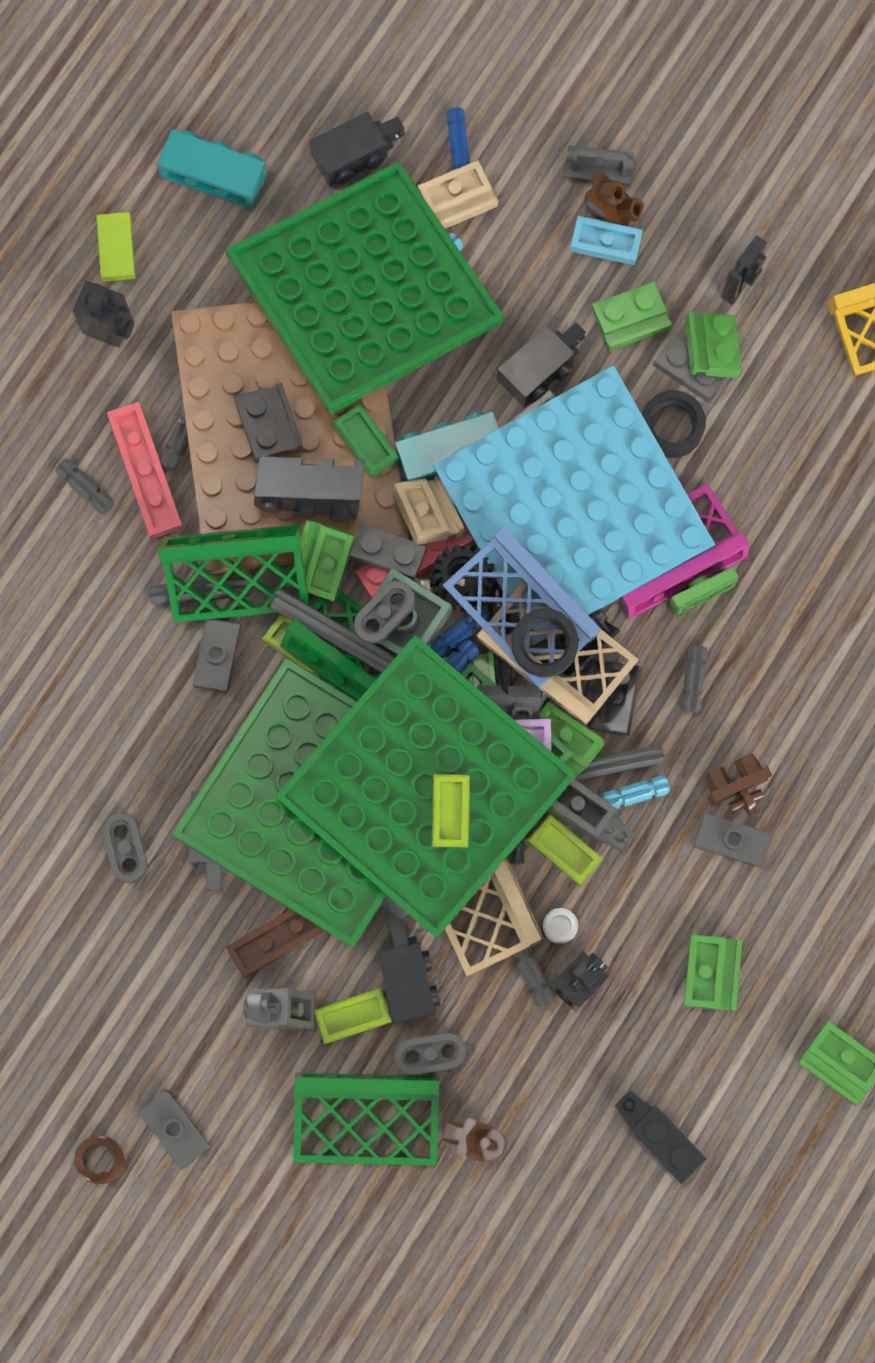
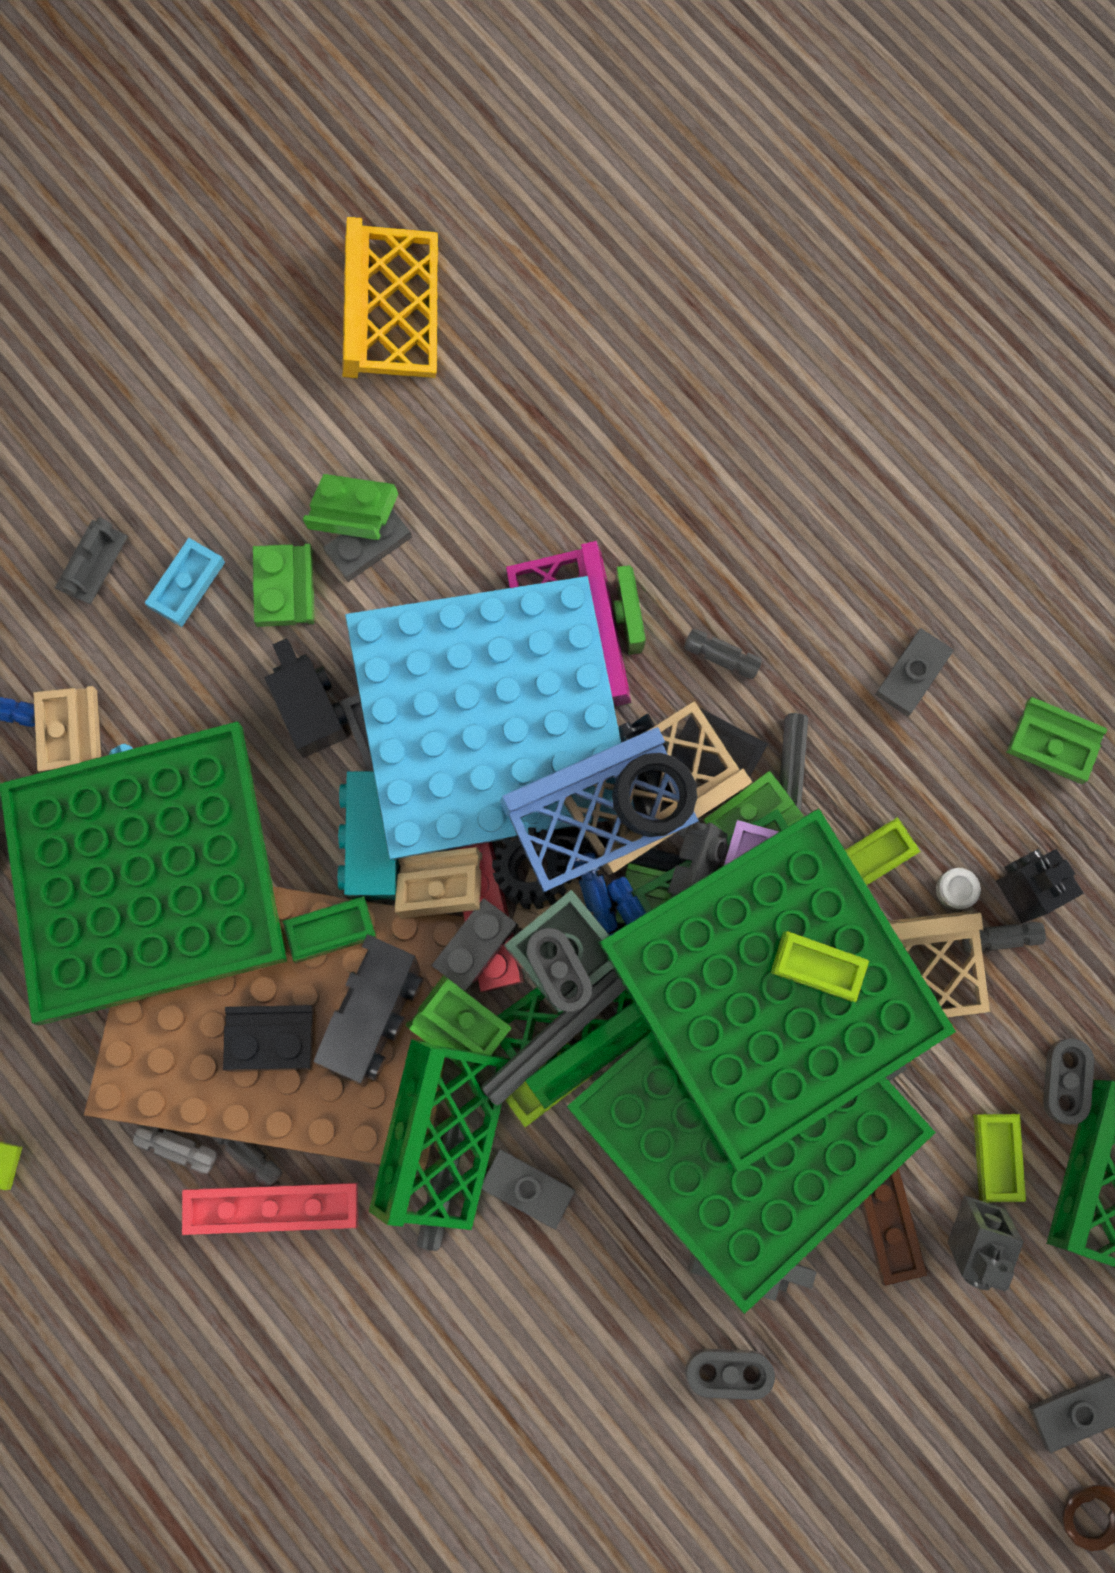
camera: 75 degrees left, 0 degrees up
(84, 486) = (263, 1290): dark grey axle -> none
(103, 314) = (56, 1202): black hinge -> none
(167, 387) = (175, 1148): none -> light grey axle
(406, 978) = (977, 1081): black hinge -> none
(591, 816) = (859, 807): dark grey hinge -> none
(611, 201) = (142, 559): reddish brown hips -> none
(637, 792) = (832, 758): medium azure axle -> none
(691, 406) = (420, 551): black tyre -> none
(746, 269) = (276, 437): black plate -> none
(751, 776) = (860, 661): reddish brown hips -> none

